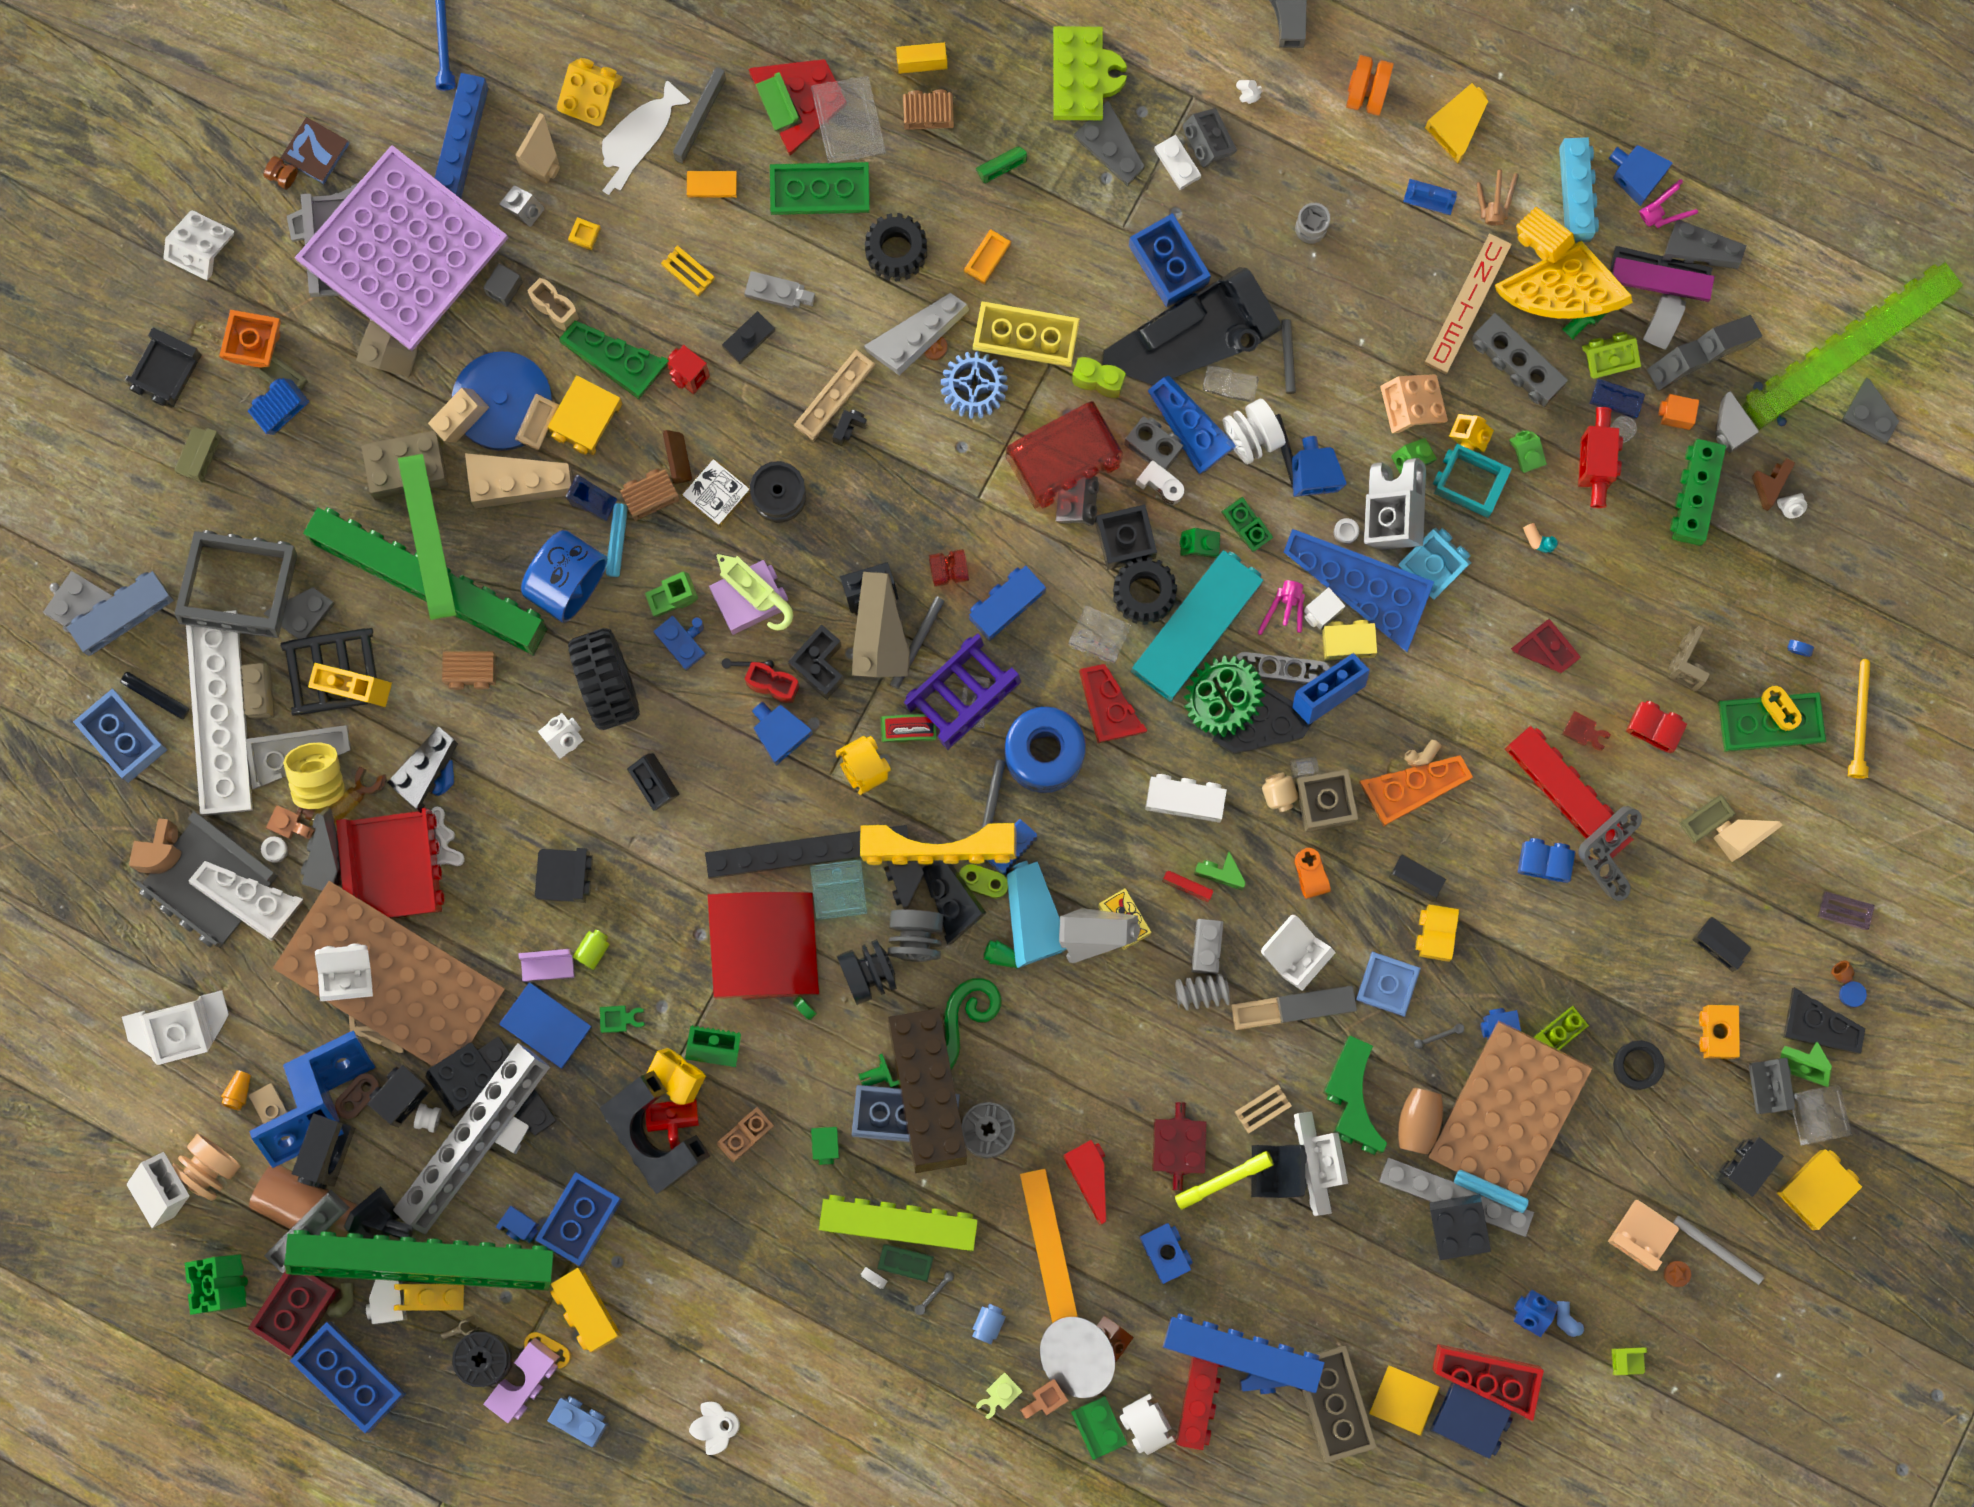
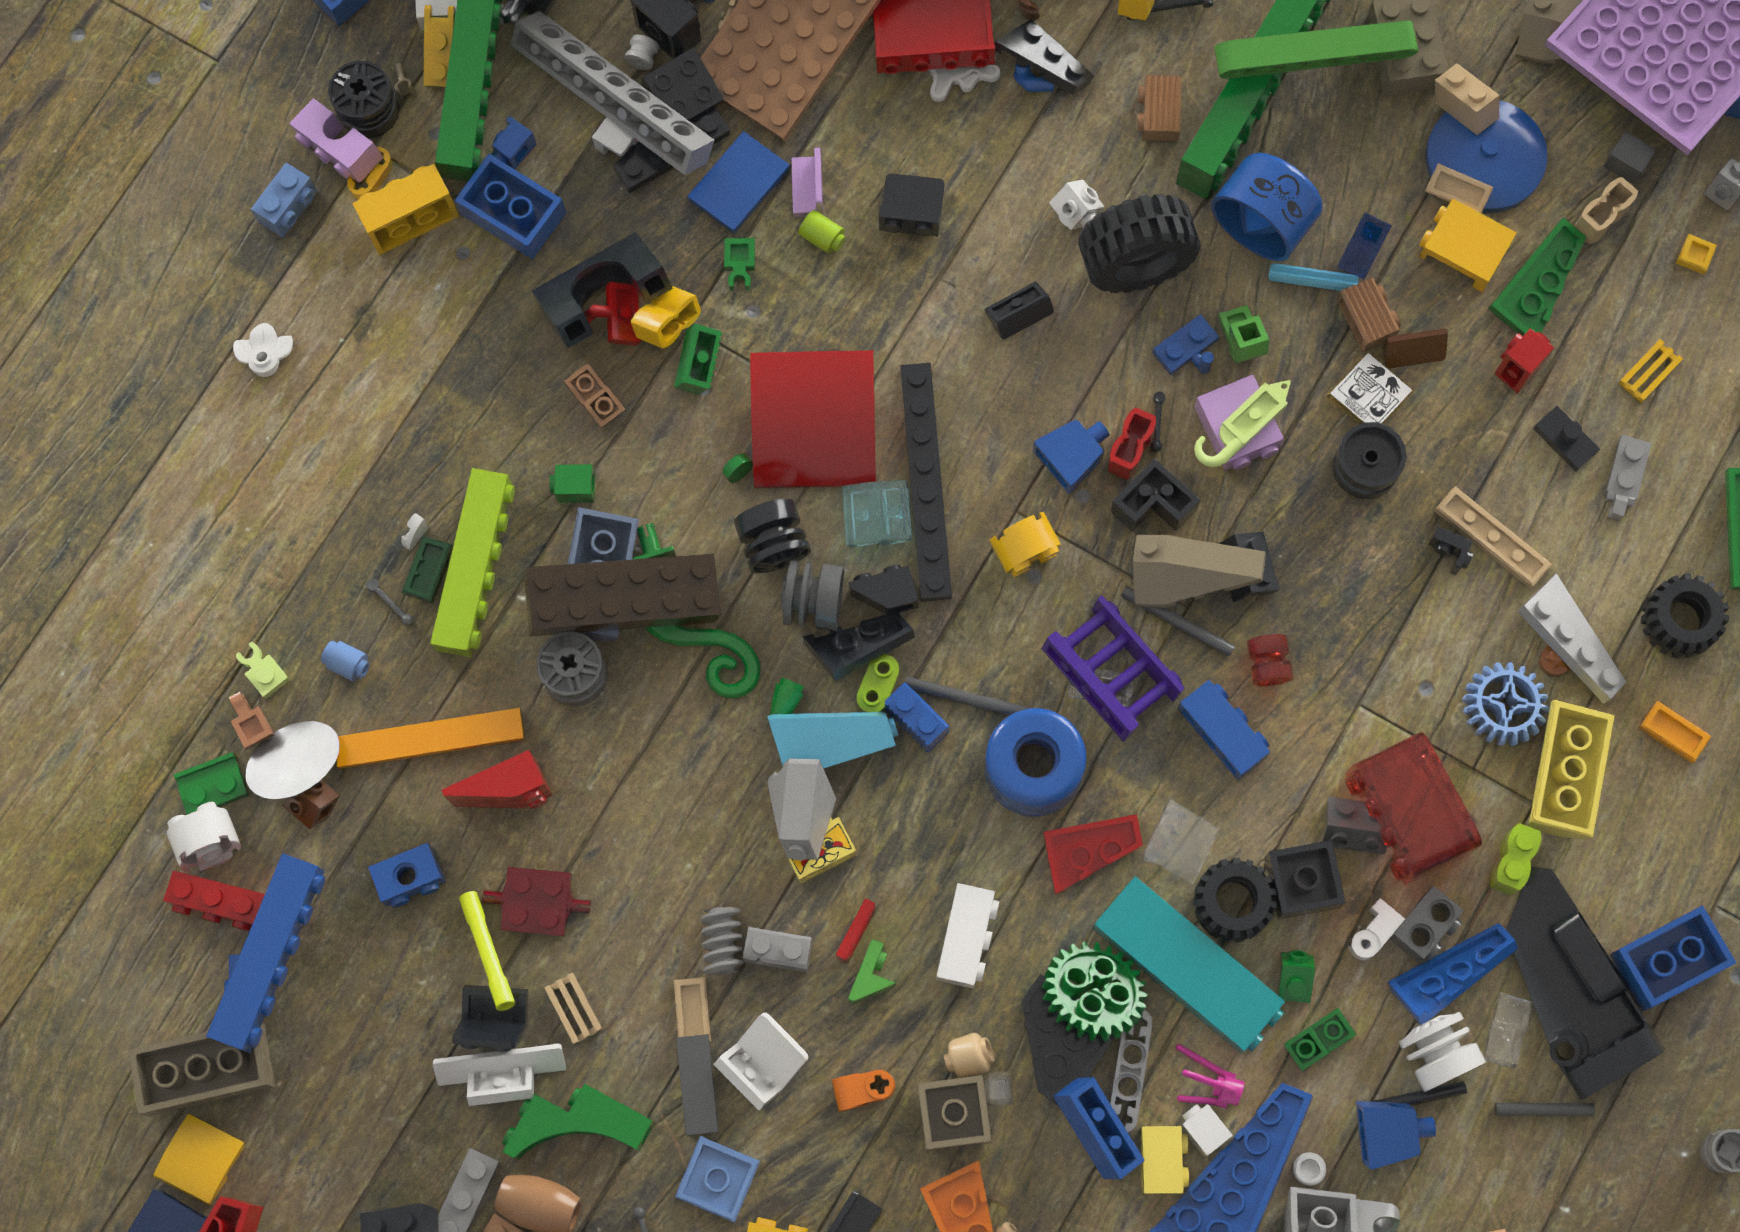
camera: 100 degrees right, 5 degrees down
(514, 480) = (1386, 157): tan wedge -> none
(907, 728) = (1070, 601): slope -> none
(991, 843) = (918, 682): yellow arch -> none

